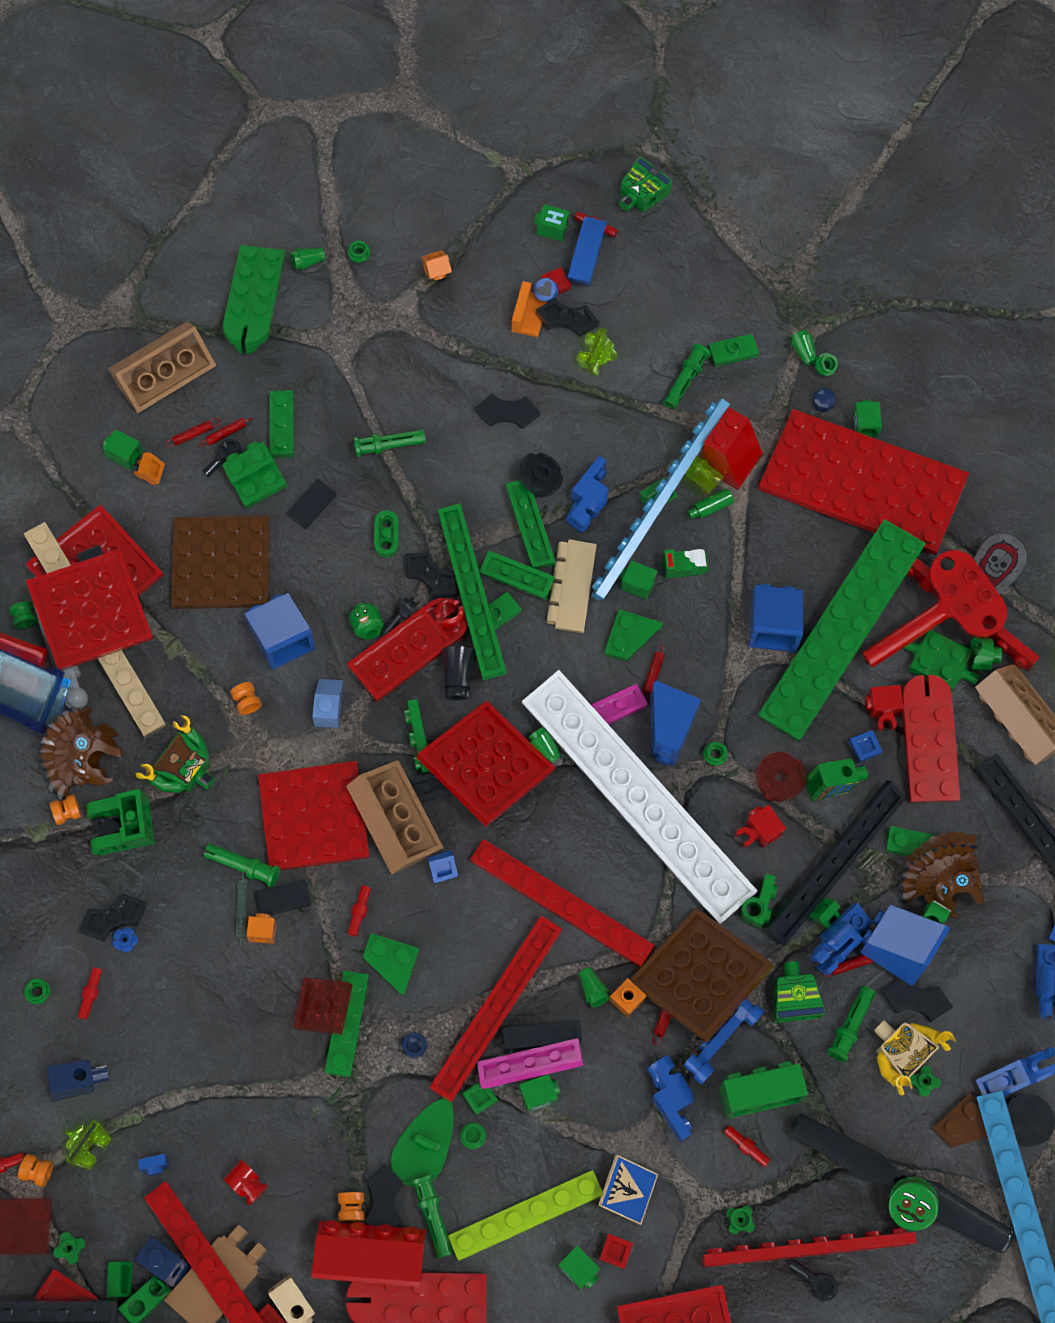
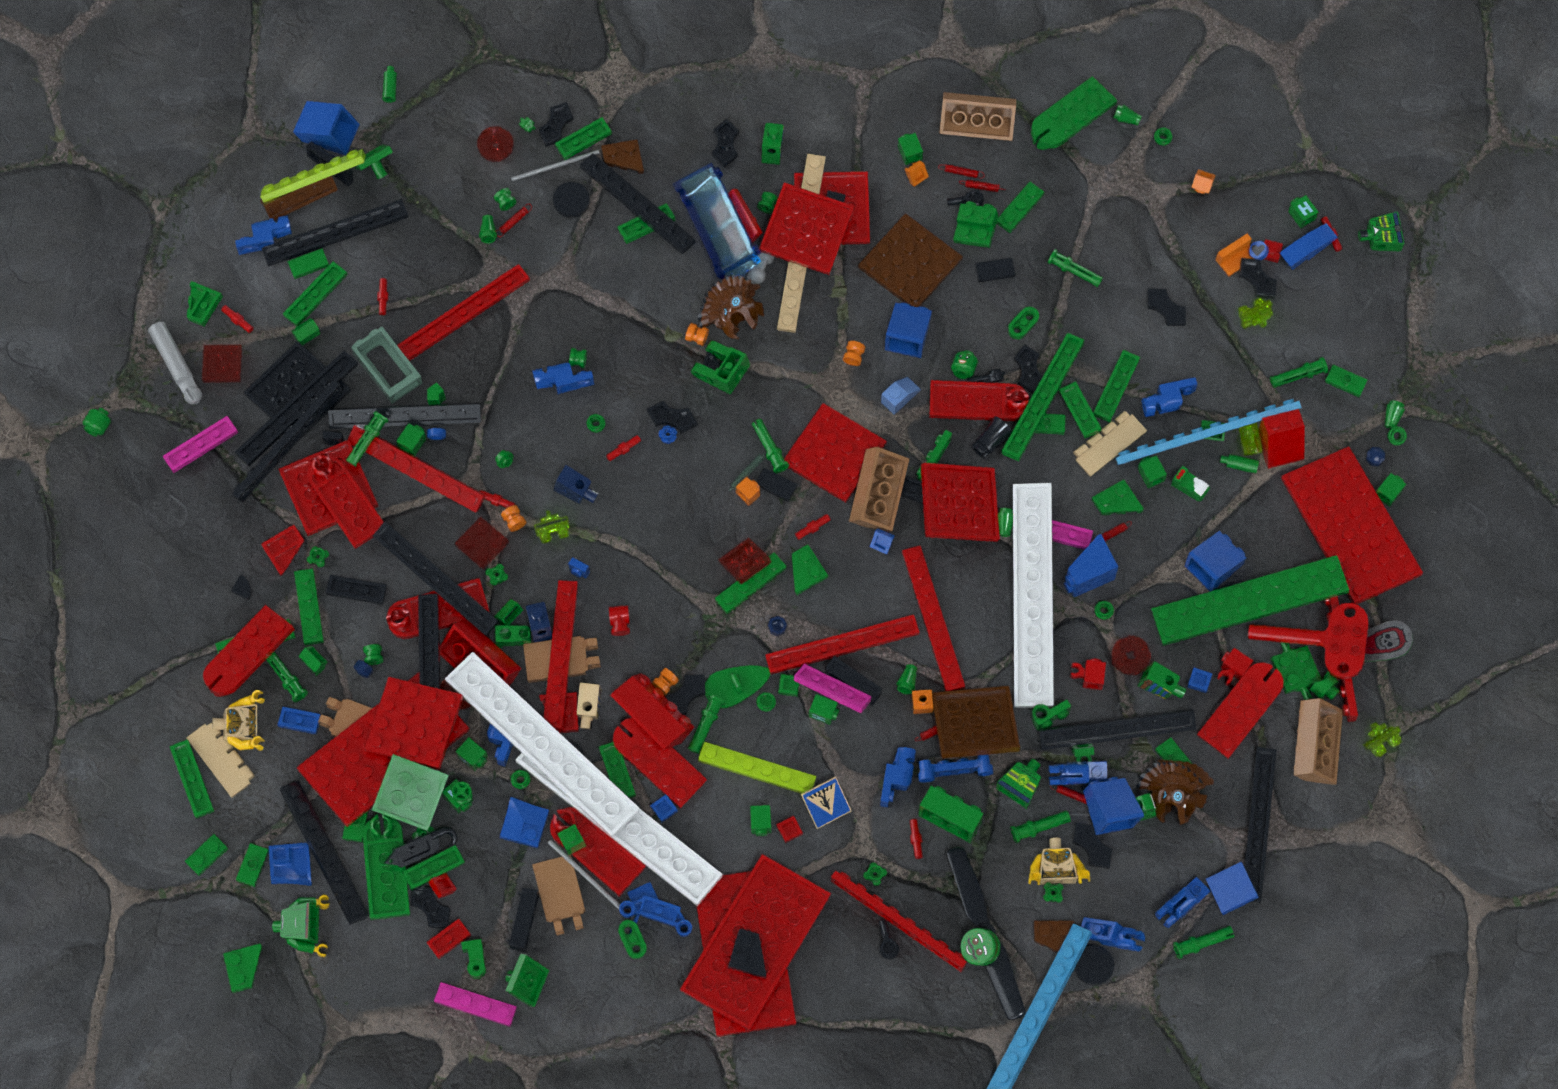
camera: 45 degrees right, 0 degrees up
(181, 763) = (784, 361): torso -> none
(540, 474) = (1149, 360): black tile -> none

